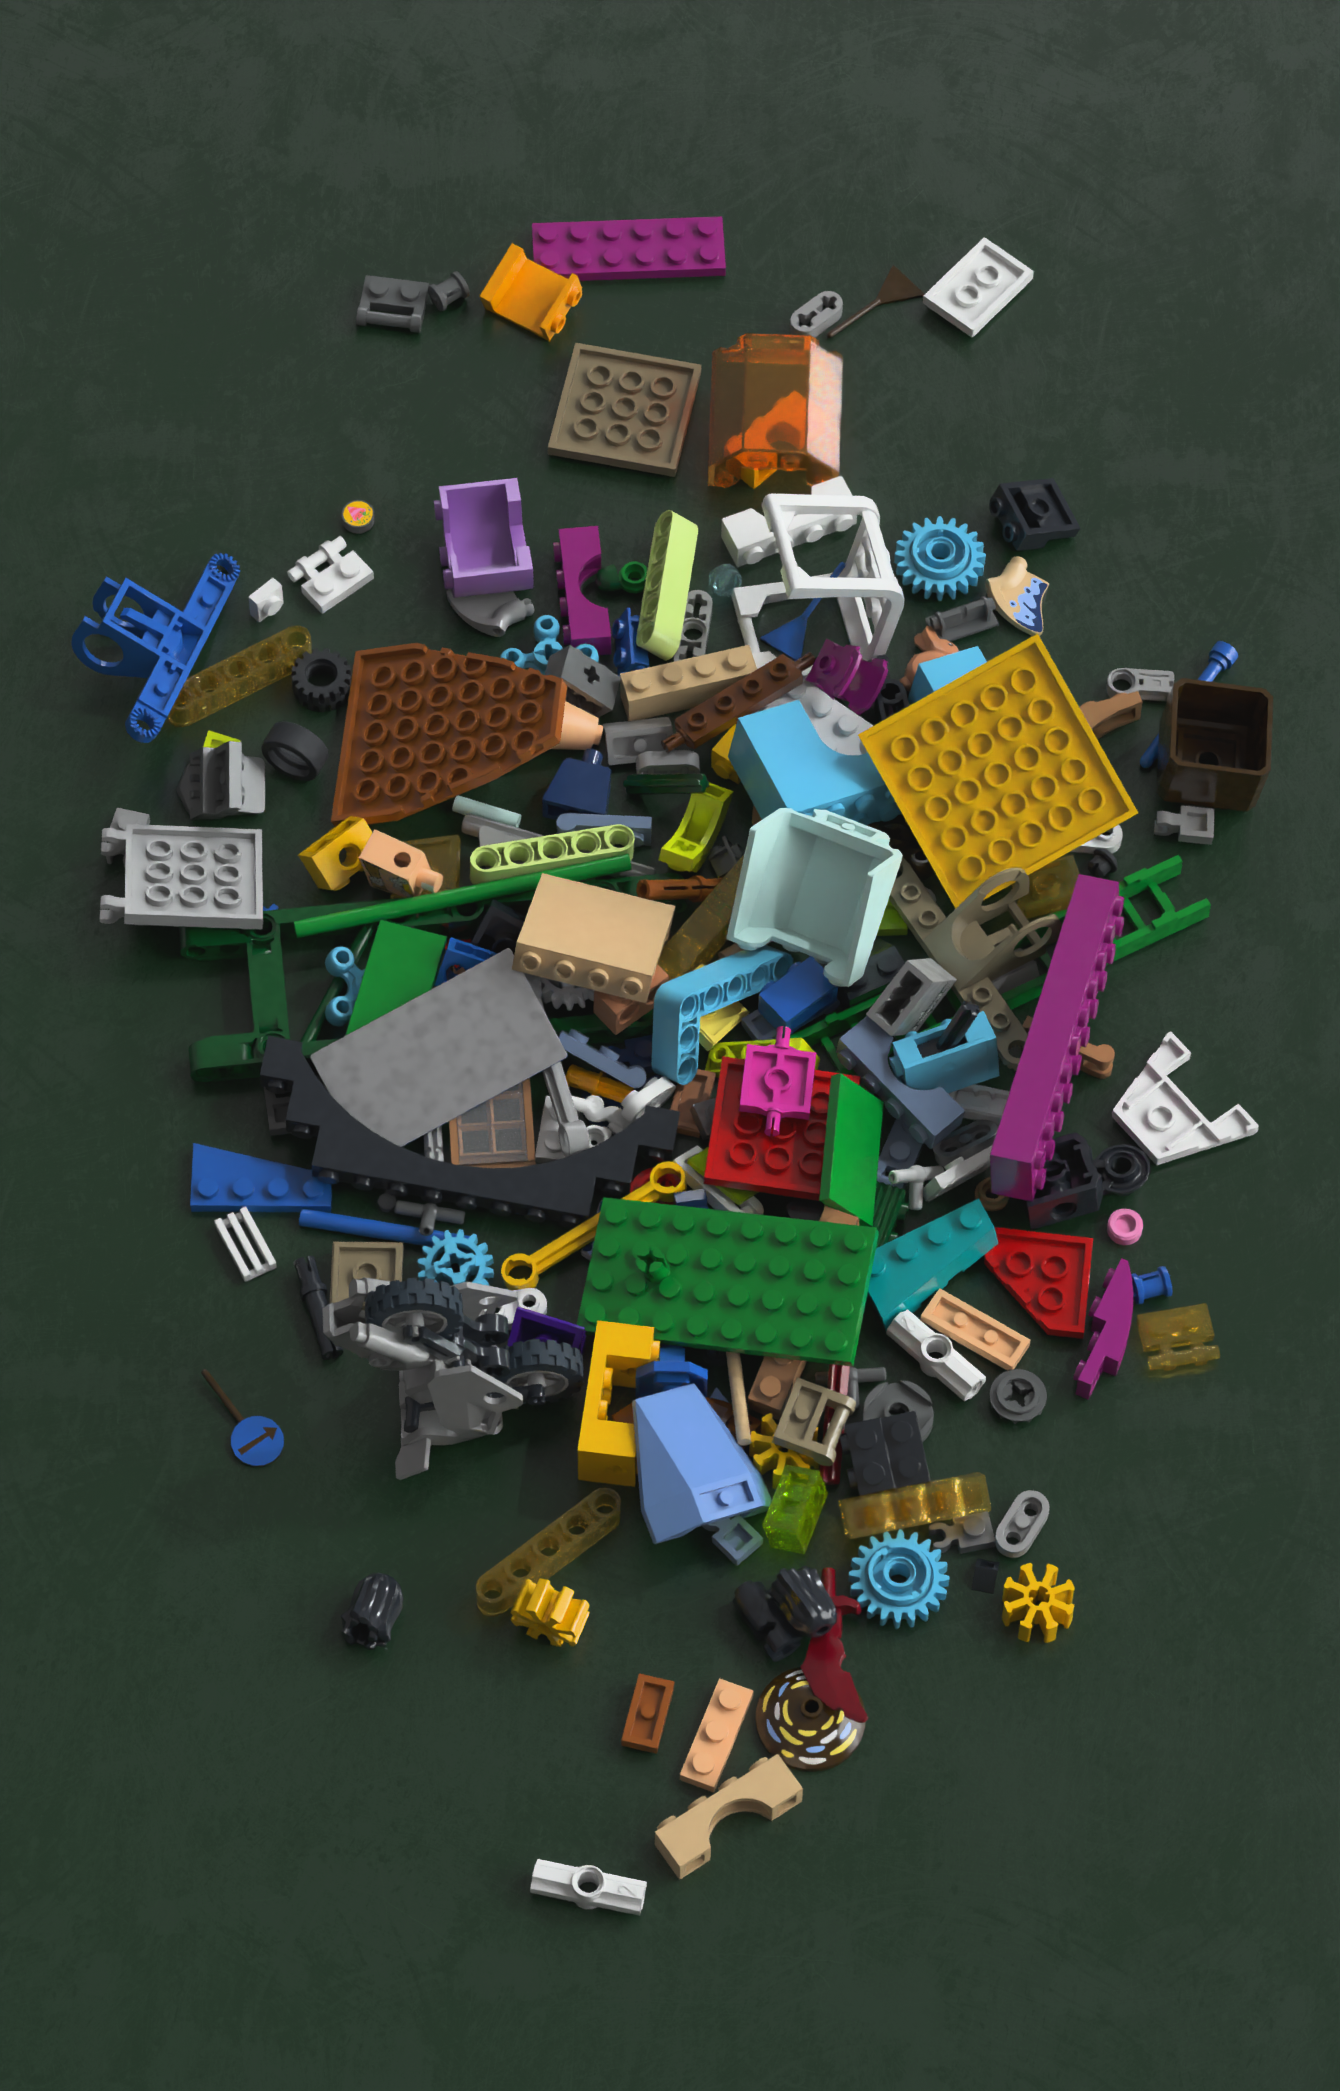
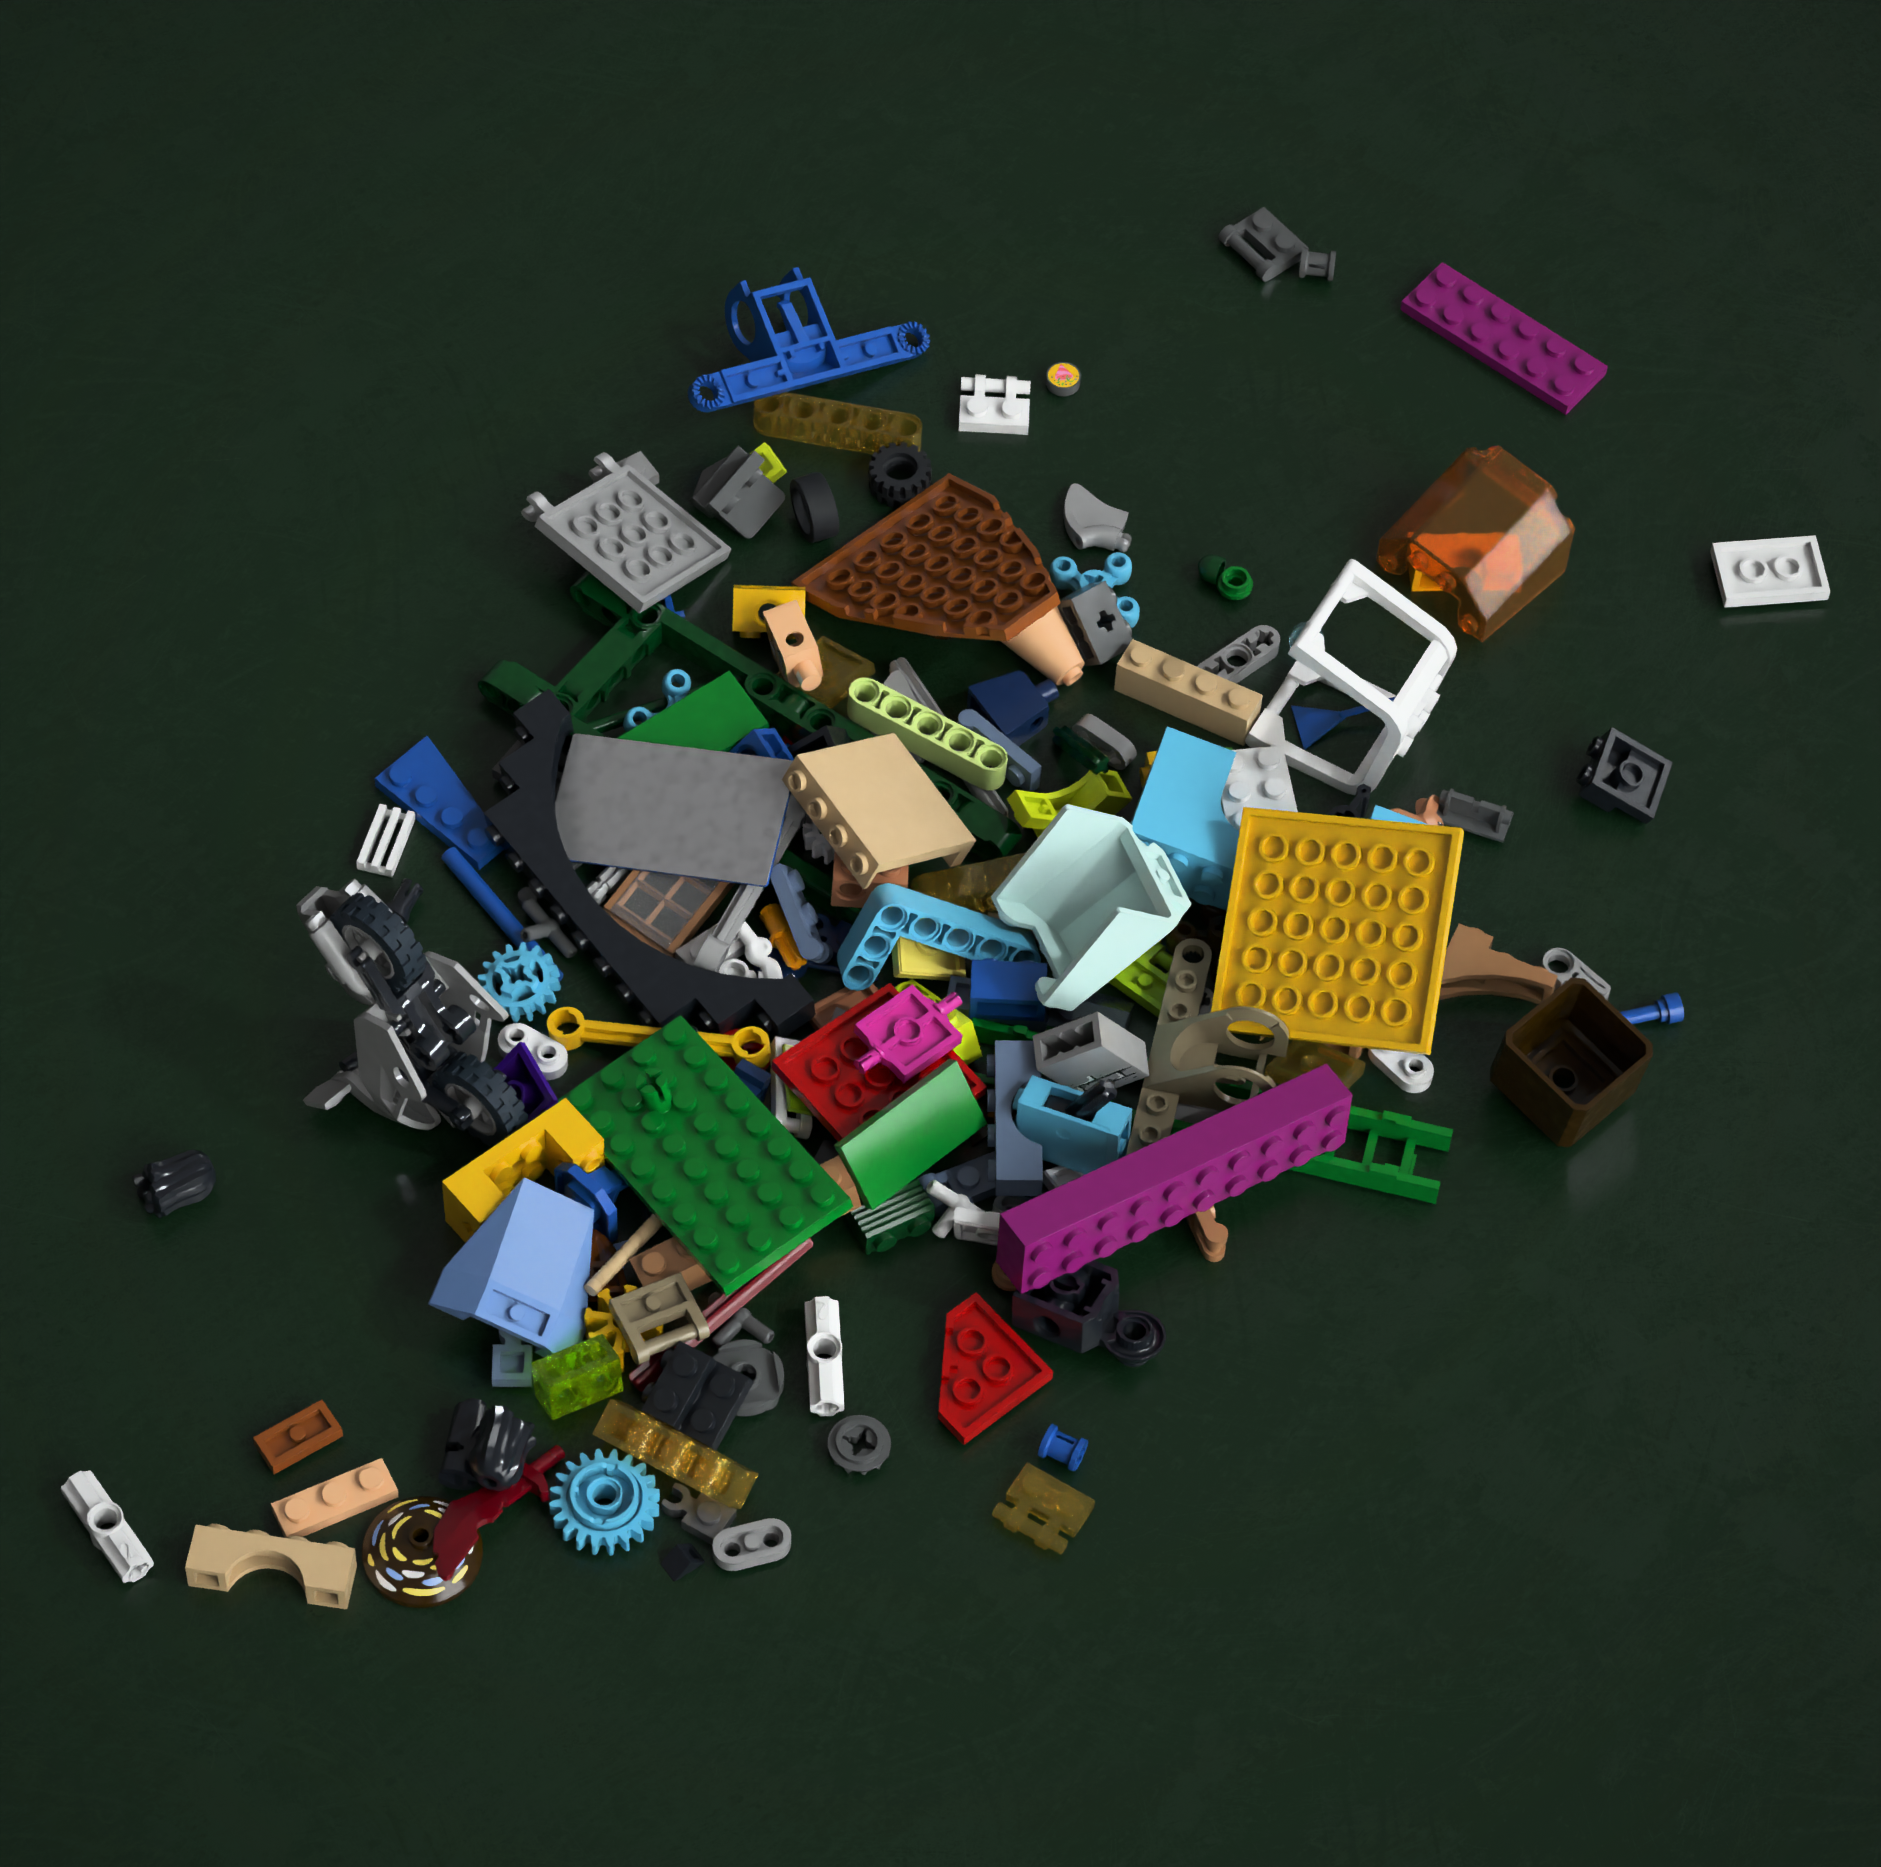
camera: 40 degrees right, 5 degrees down
(255, 1439) = (237, 988): blue piece -> none
(266, 600) = (920, 385): white plate -> none
(362, 1260) = (453, 930): dark tan plate -> none
(457, 896) = (819, 706): green piece -> none
(468, 806) = (922, 668): light aqua piece -> none
(483, 538) = (1138, 465): medium lavender cylinder -> none
(530, 294) = (1380, 309): light orange panel -> none
(550, 1612) = (300, 1293): yellow gear -> none
(553, 1536) = (341, 1239): clear yellow beam -> none
(580, 559) = (1202, 532): magenta arch -> none
(624, 409) = (1363, 452): dark tan plate -> none
(627, 655) = (1184, 621): blue hinge -> none
(630, 738) = (1097, 698): light grey panel -> none
(653, 1094) = (815, 977): white plate -> none
(667, 585) = (1251, 605): yellowish green beam -> none
(696, 888) = (972, 816): dark orange pin -> none
(738, 700) = (1232, 732): reddish brown plate -> none
(749, 537) = (1371, 628): white arch -> none
(813, 313) = (1606, 497): light grey beam -> none
(847, 676) = (1324, 790): magenta piece -> none
(895, 288) = (1700, 525): dark brown piece -> none
(918, 554) = (1526, 755): medium azure gear -> none
(927, 1258) = (890, 1272): teal wedge -> none
(975, 1330) = (879, 1364): light nougat plate -> none
(1018, 596) = (1544, 833): tan arm -> none
(1020, 1602) = (713, 1612): yellow gear -> none
(1102, 863) = (1386, 1091): black piece -> none
(1111, 1329) = (1001, 1450): magenta slope -> none
(1125, 1226) = (1095, 1387): bright pink tile -> none
(1165, 1119) = (1218, 1329): white wing -> none
(1191, 823) = (1495, 1119): light grey plate -> none

